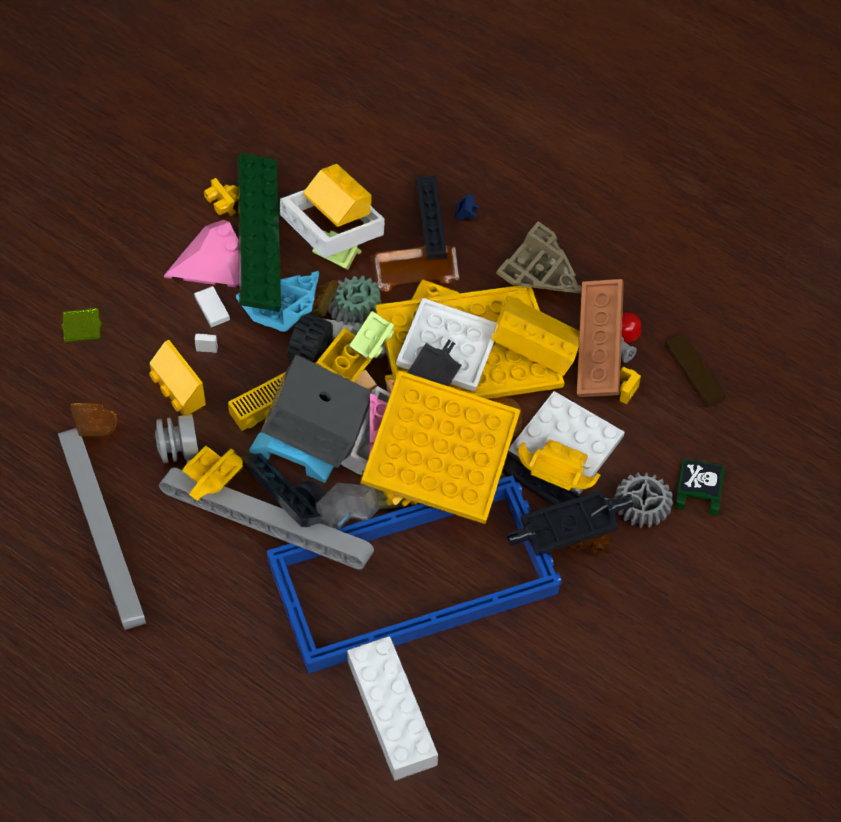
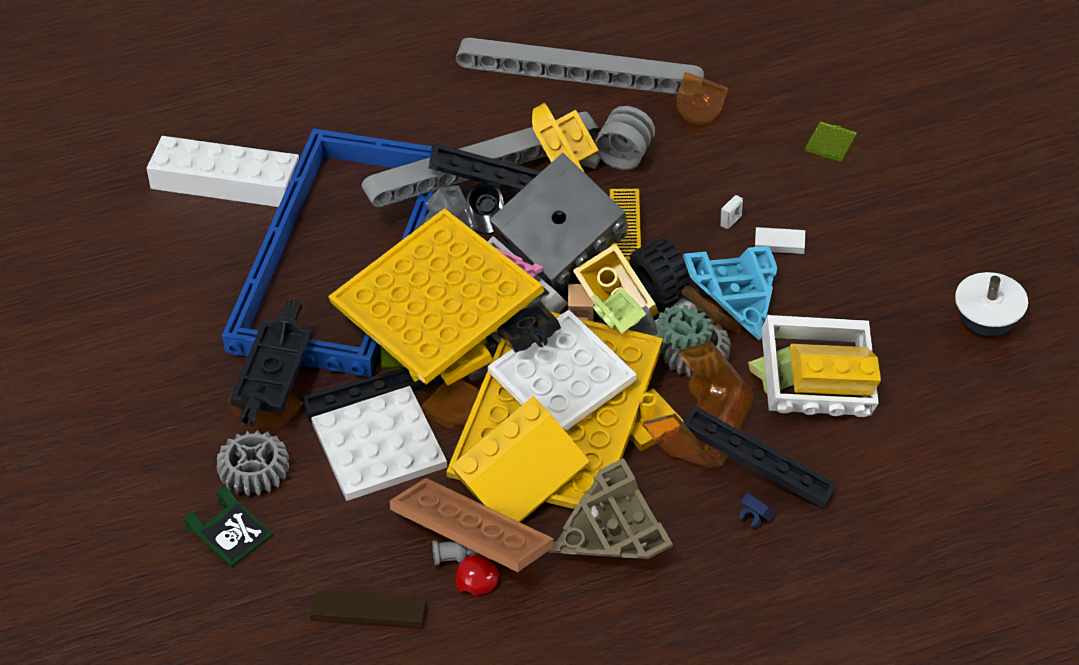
camera: 125 degrees right, 10 degrees down
(177, 379) = (698, 172): yellow slope -> none
(205, 154) = (990, 303): none -> white piece
(210, 257) = (847, 259): bright pink wedge -> none
(226, 195) = (924, 303): yellow hips -> none
(258, 233) = (840, 295): dark green plate -> none
(558, 465) = (348, 401): yellow plate -> none
(630, 384) = (398, 533): yellow bracket -> none

